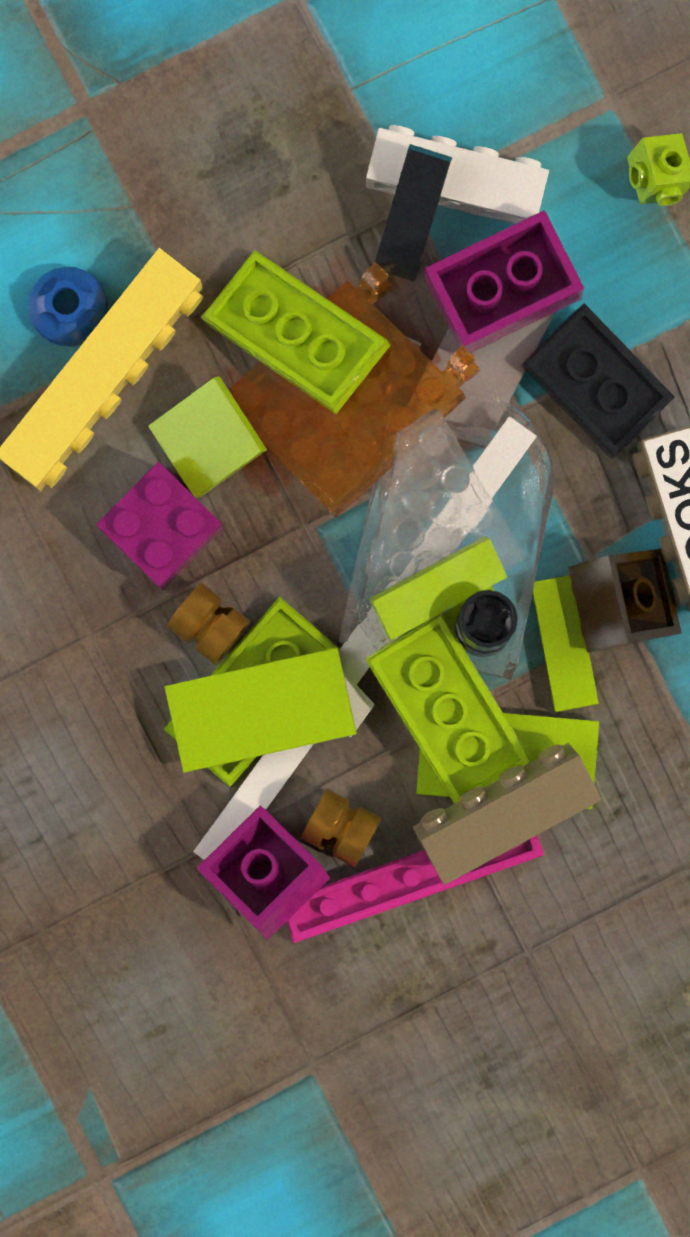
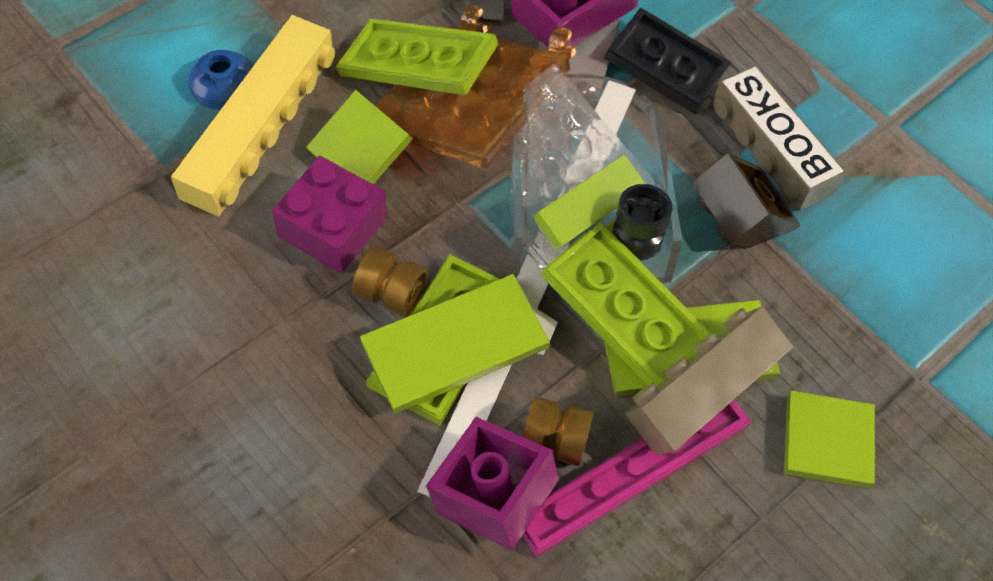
camera: 15 degrees left, 25 degrees down
(563, 645) = (710, 254): lime tile -> none
(620, 888) = (830, 439): none -> lime tile

